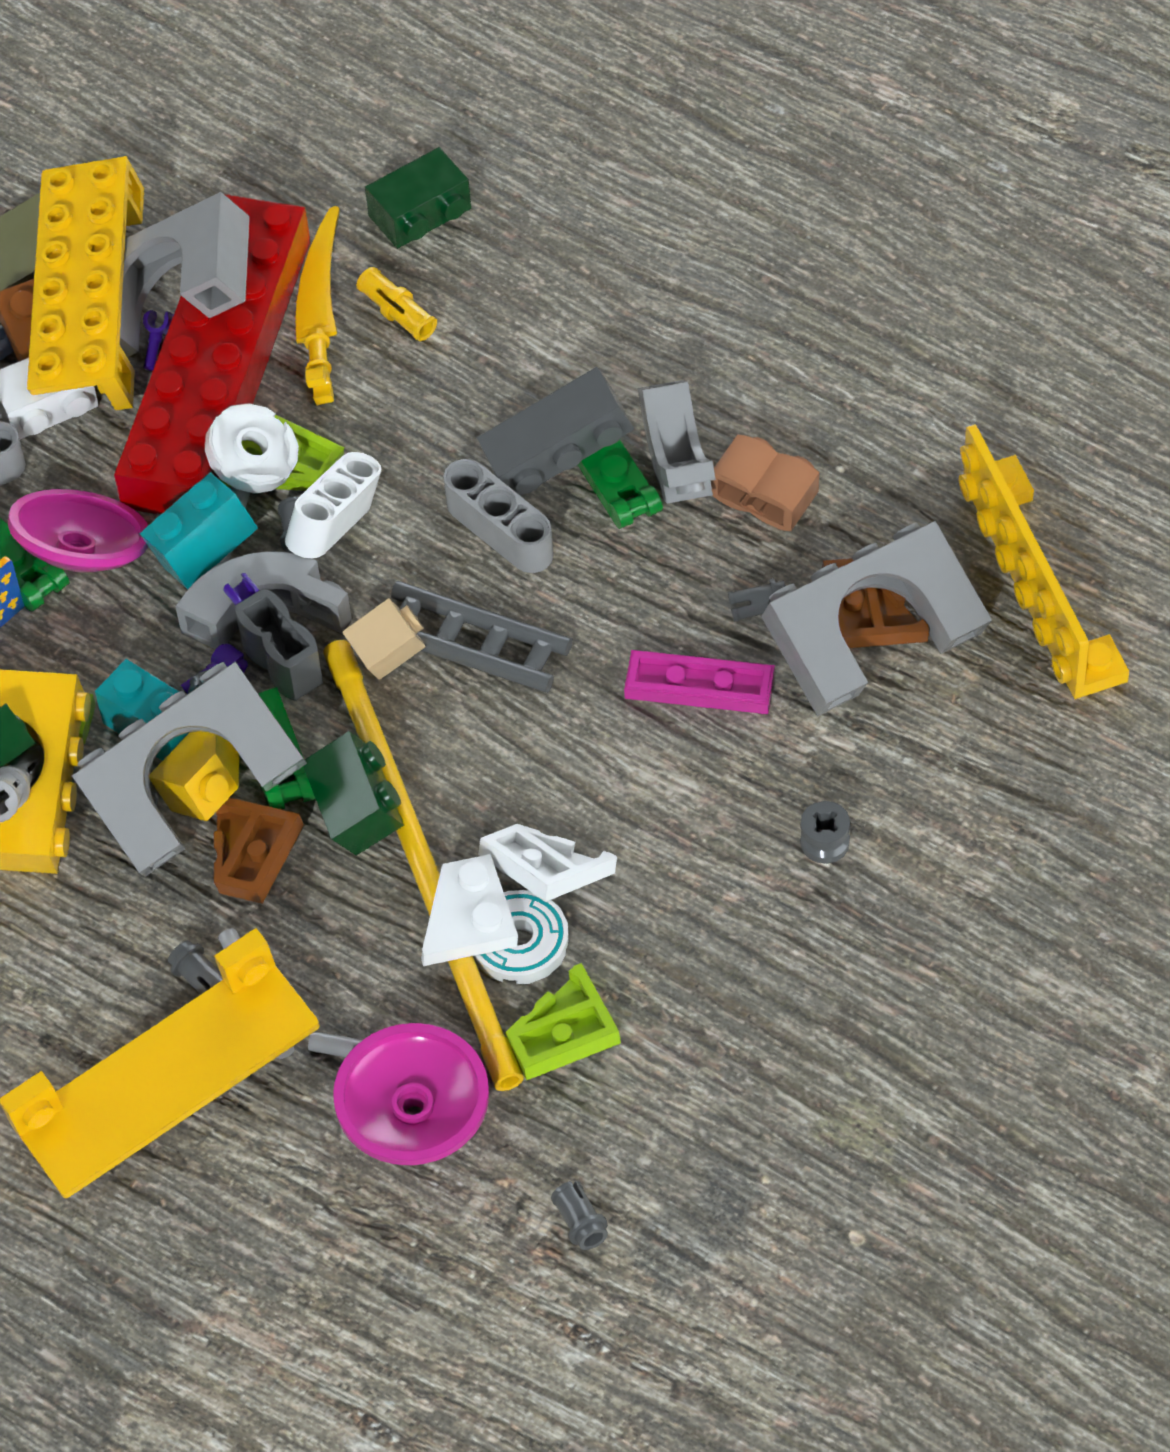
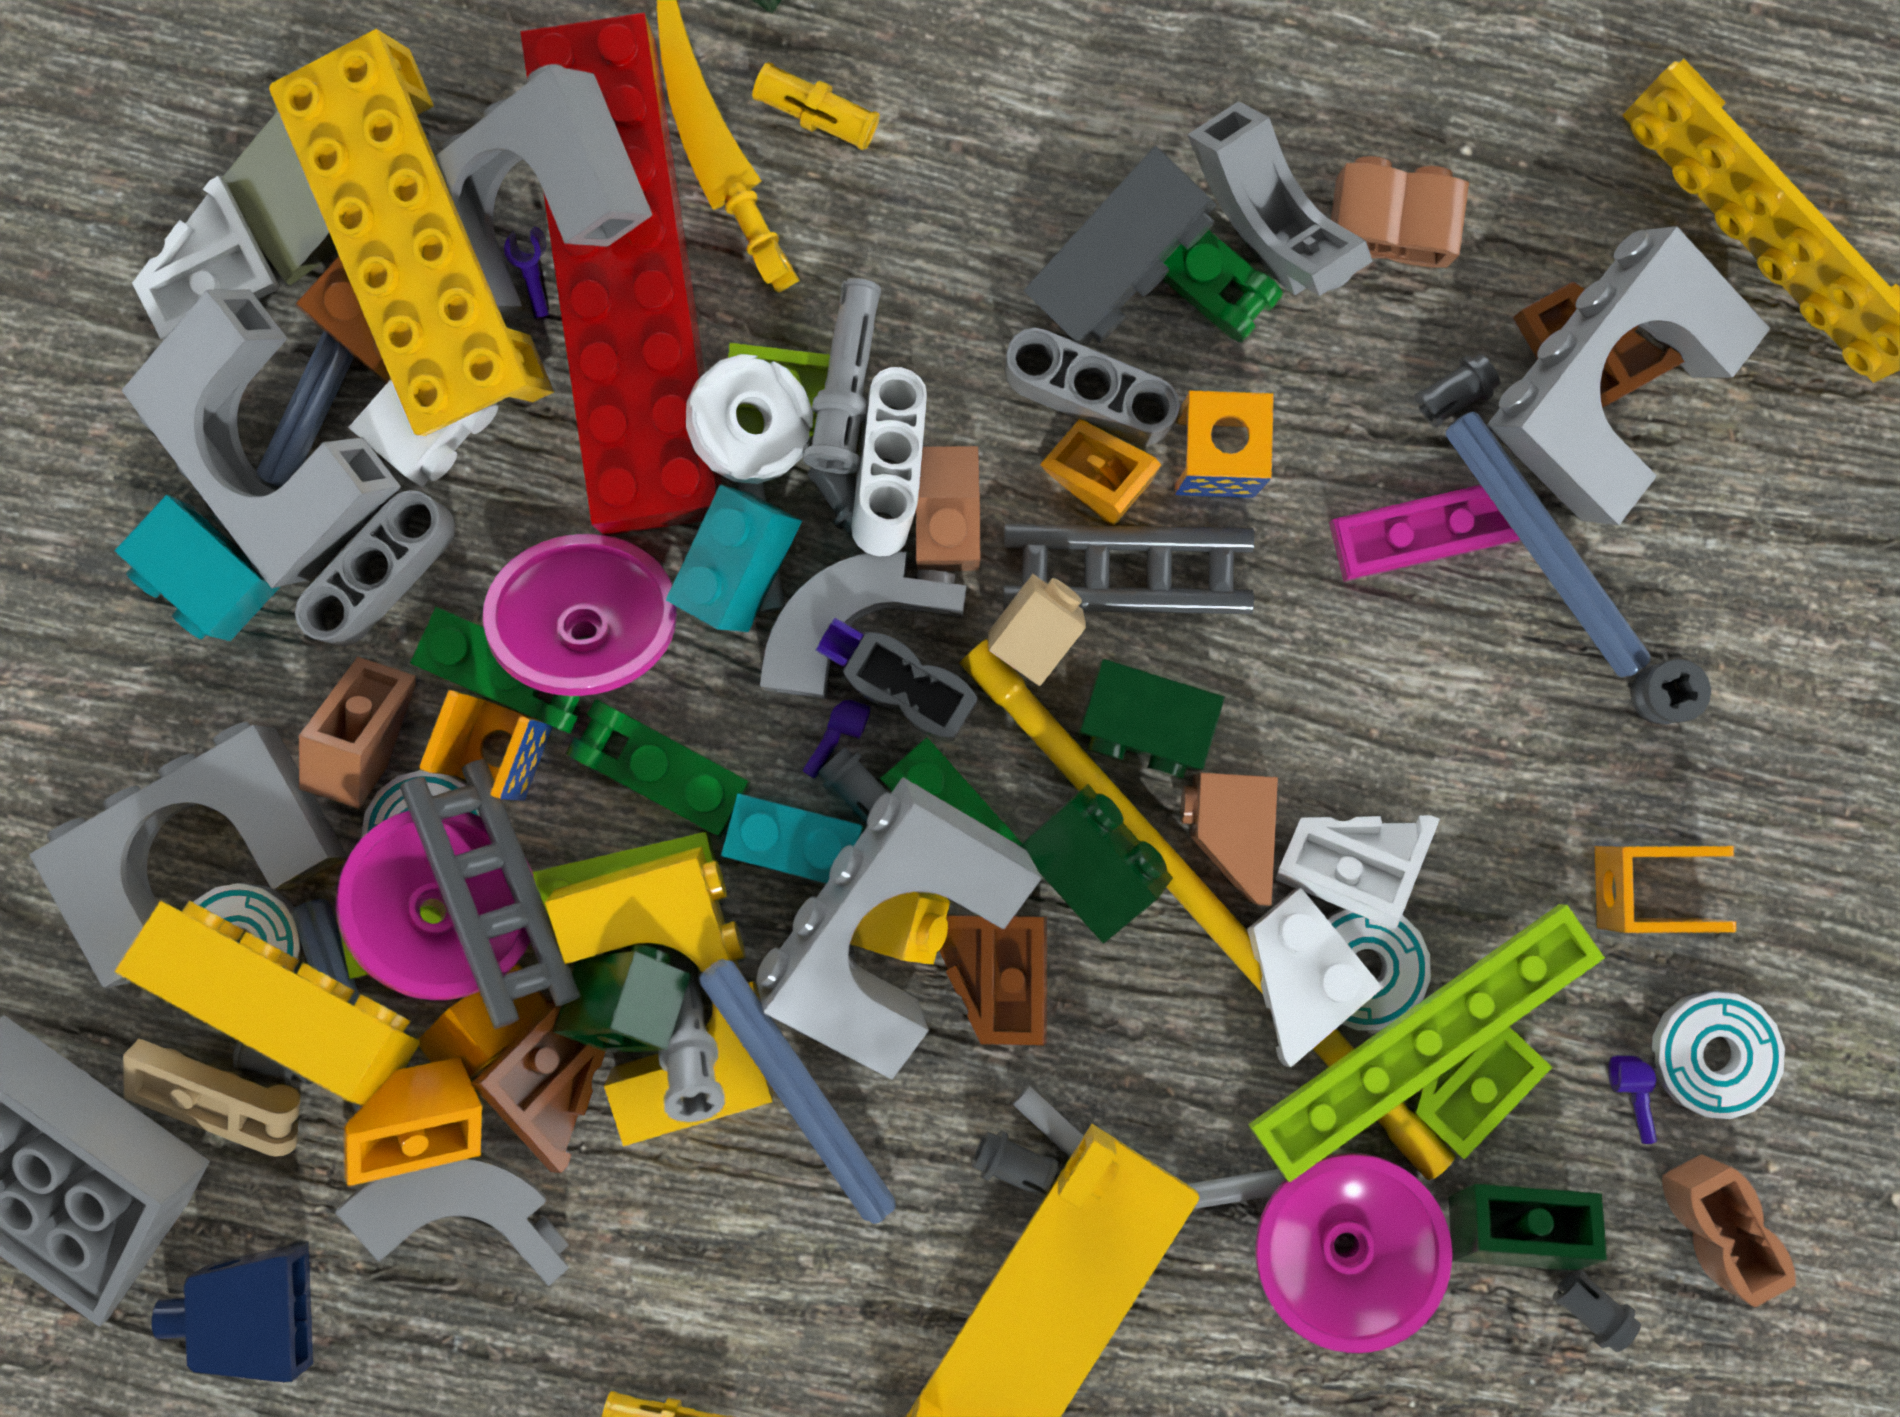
camera: 25 degrees left, 30 degrees up
(70, 856) = (797, 1090): none -> sand blue axle
(78, 645) = (660, 768): none -> green plate
(305, 472) = (841, 403): none -> light grey pin
(361, 559) = (948, 510): none -> nougat slope
(438, 723) = (1149, 718): none -> dark green brick
(466, 805) = (1235, 828): none -> nougat slope
(484, 573) = (1101, 470): none -> light orange slope
(532, 975) = (1425, 1041): none -> lime plate
(547, 1124) = (1527, 1227): none -> dark green brick
(560, 564) = (1220, 473): none -> light orange piece
(683, 1072) = (1639, 1079): none -> dark purple hand
(698, 1178) = (1729, 1230): none -> nougat brick
(754, 1055) = (1754, 1061): none -> white tile
(762, 922) = (1619, 914): none -> light orange piece
(774, 706) = (1547, 544): none -> sand blue axle

